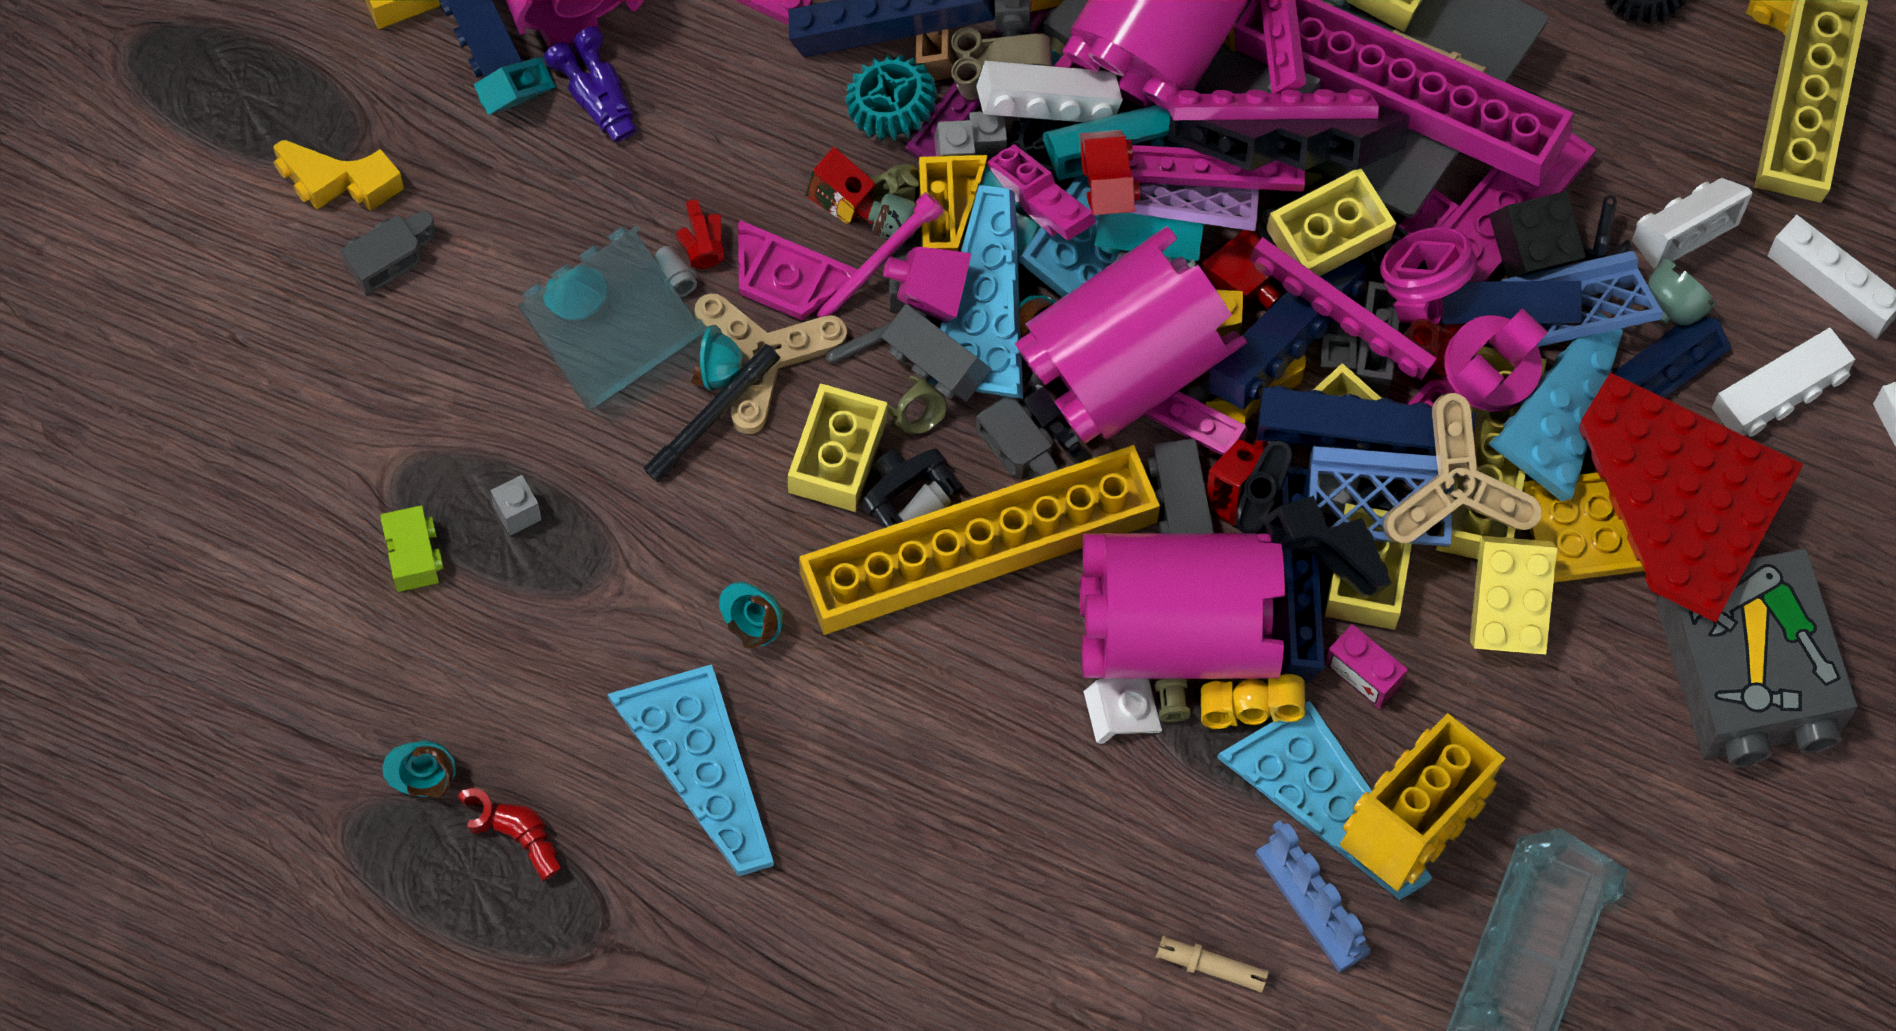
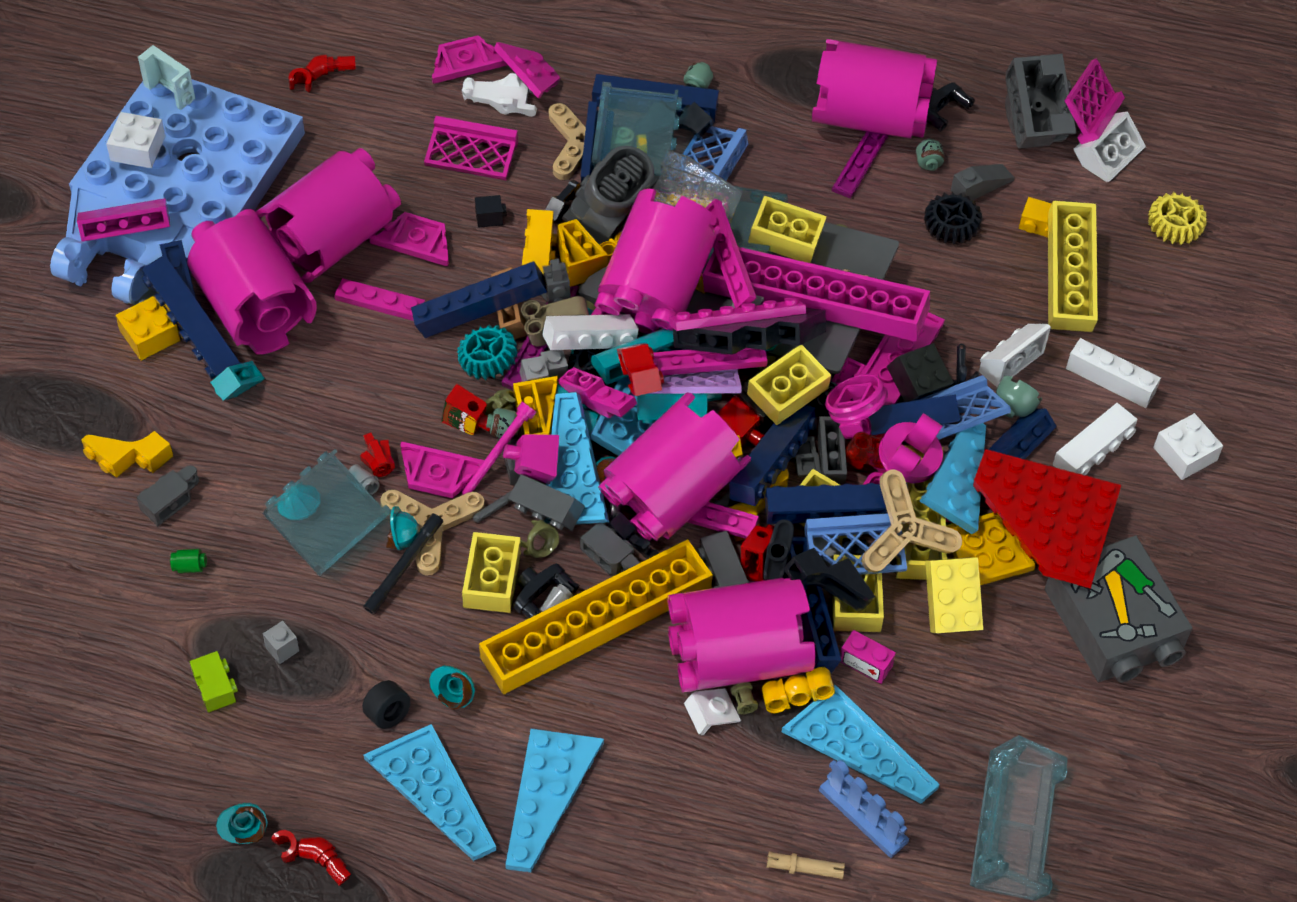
camera: 10 degrees left, 10 degrees down
(401, 358) = (188, 561): none -> green brick
(597, 90) = (293, 376): dark purple piece -> none
(651, 624) = (386, 704): none -> black tyre
(866, 779) = (548, 784): none -> medium azure wing
(1333, 303) = (806, 433): dark pink plate -> none
(1422, 802) = (924, 734): yellow brick -> none

